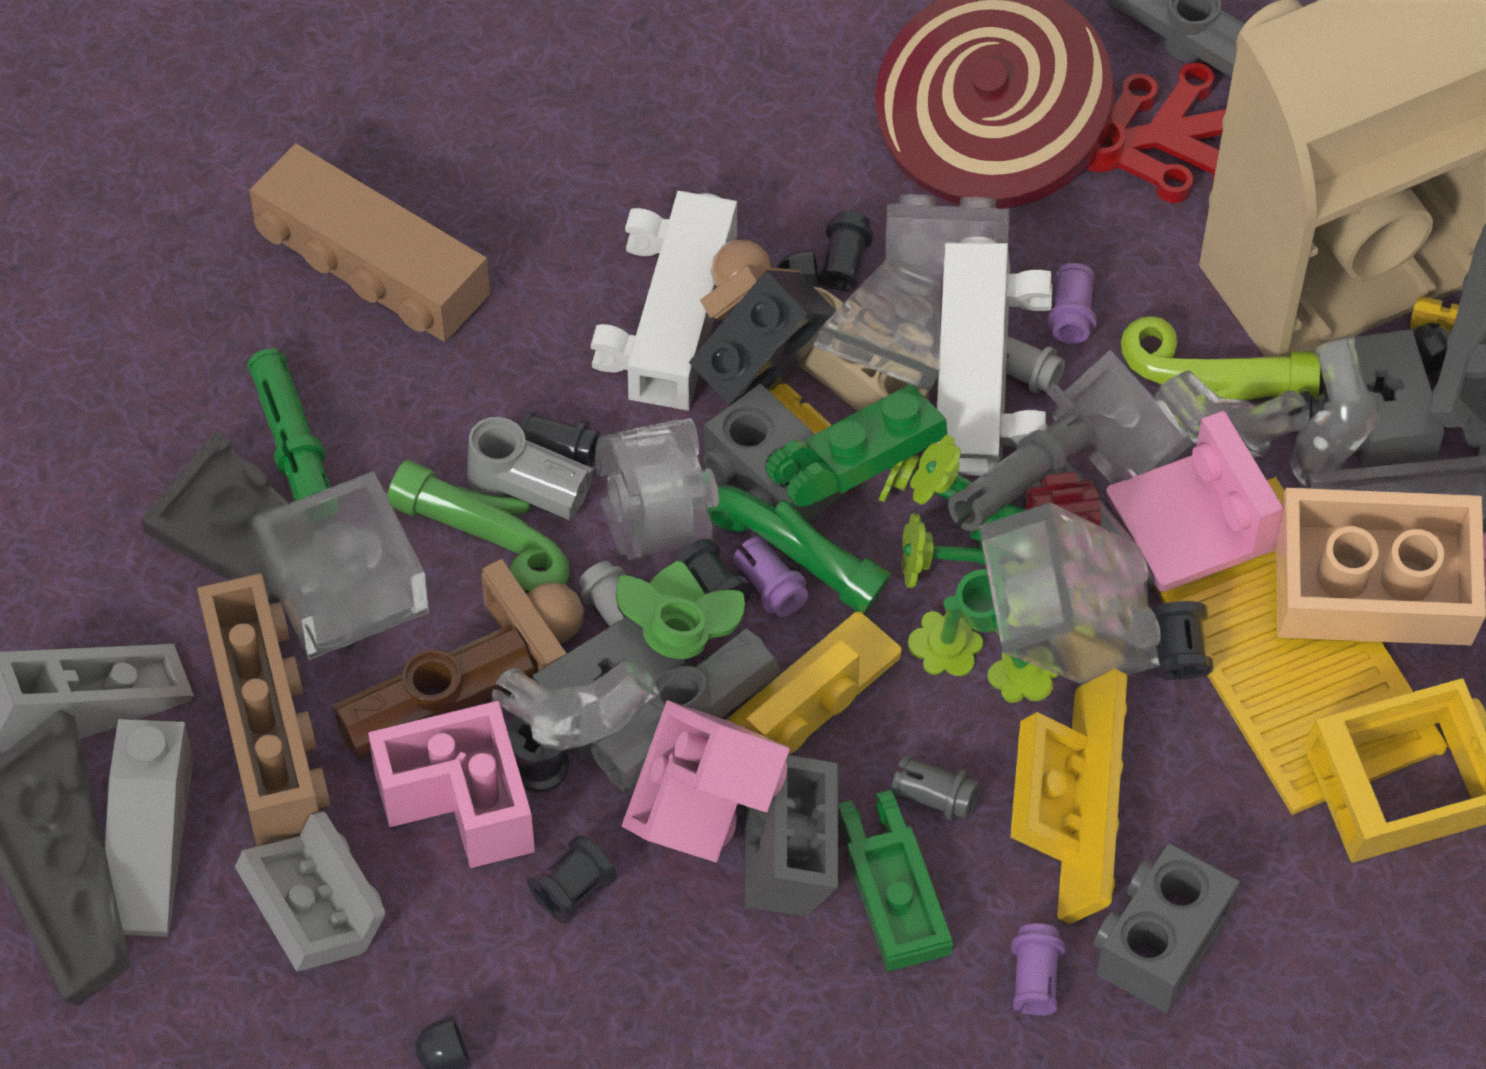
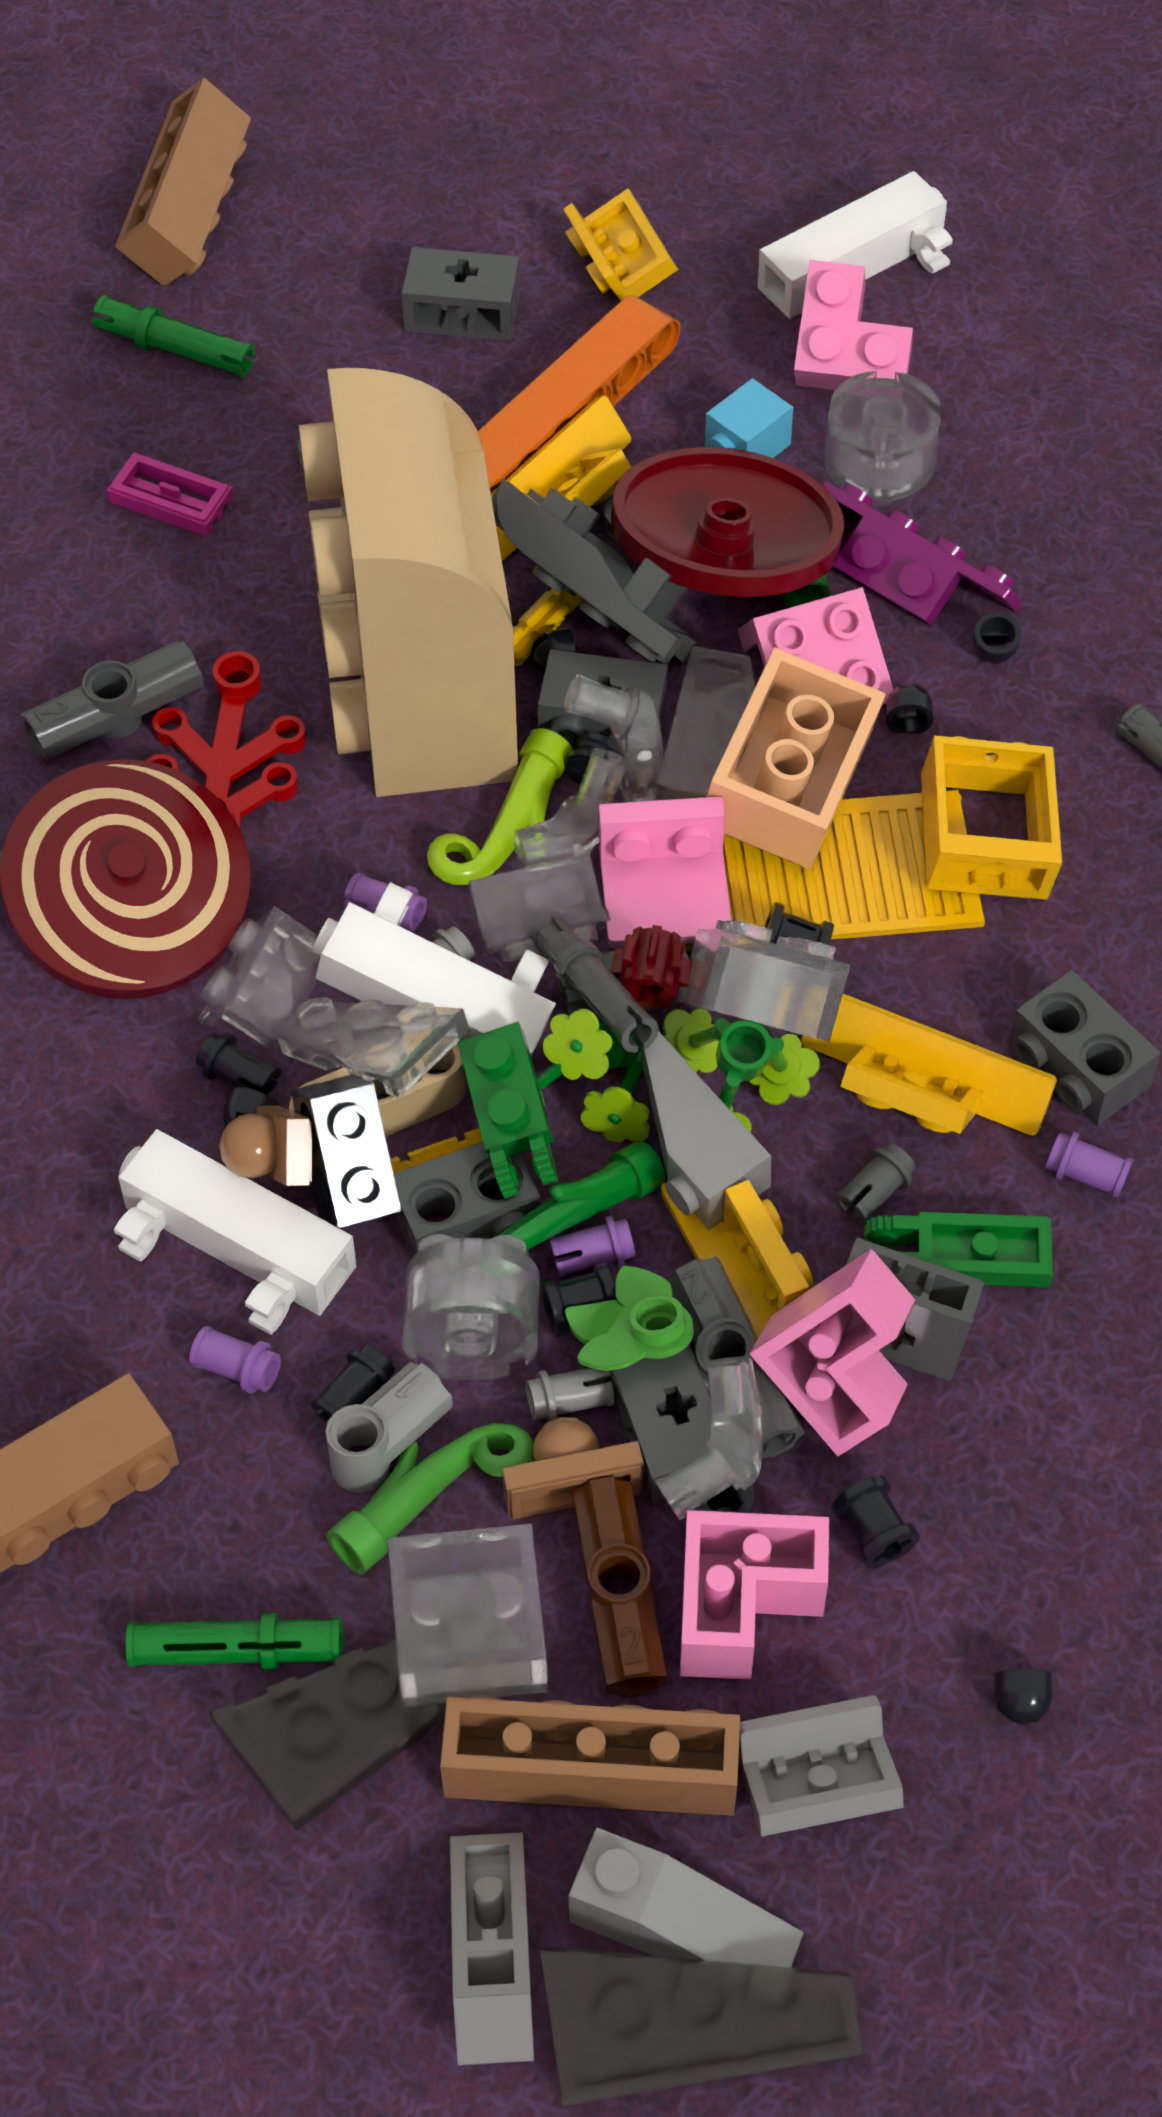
camera: 70 degrees left, 0 degrees up
(551, 357) = (246, 1363): none -> medium lavender pin
(901, 610) = (699, 1137): none -> light grey slope

